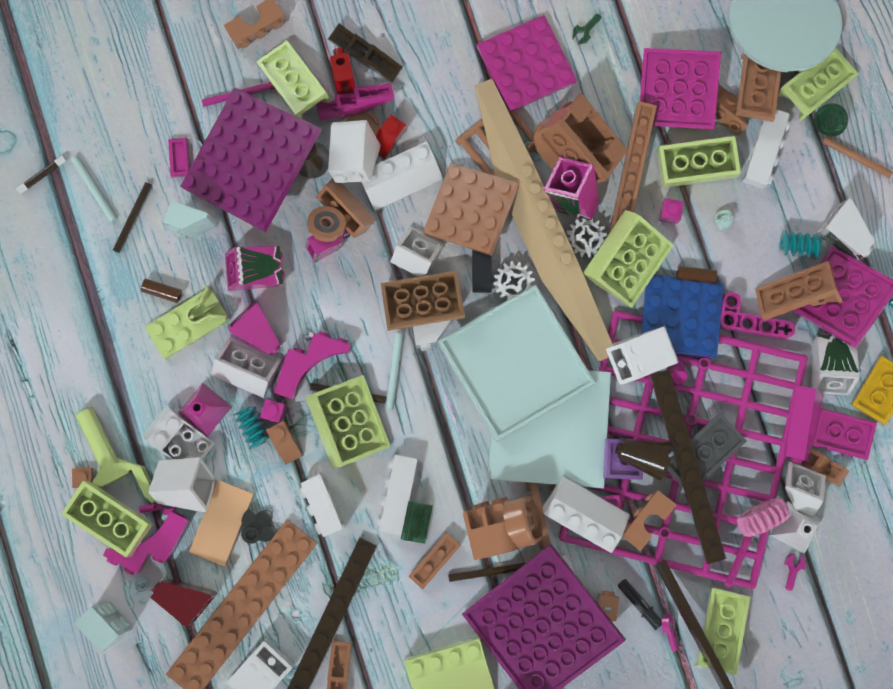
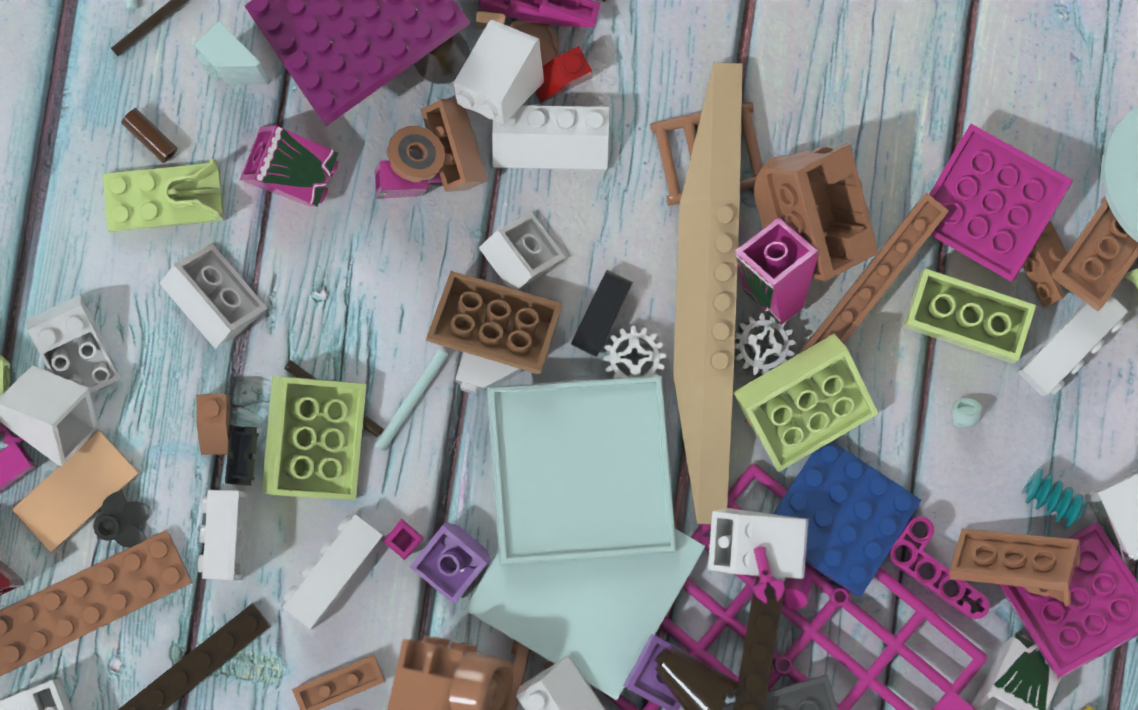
camera: 20 degrees right, 0 degrees up
(211, 412) = (129, 326): dark pink slope -> none
(252, 427) = (180, 381): teal piece -> none
(255, 329) = (249, 250): dark pink slope -> none
(273, 411) = (220, 374): dark pink brick -> none
(299, 364) = (285, 327): dark pink arch -> none
(311, 458) = (240, 454): none -> black hinge
(326, 125) = (483, 18): none -> light nougat tile
(416, 522) = (339, 621): clear green plate -> none
(430, 455) = (403, 539): none -> dark pink brick
(465, 454) = (451, 561): none -> medium lavender slope
(471, 208) = (624, 229): nougat plate -> none
(526, 63) = (800, 66): dark pink plate -> none
(586, 37) = (906, 58): clear green bar -> none
(656, 371) = (765, 576): none -> dark pink bar
(671, 211) = (898, 365): dark pink brick -> none
(696, 274) = (890, 469): reddish brown piece -> none

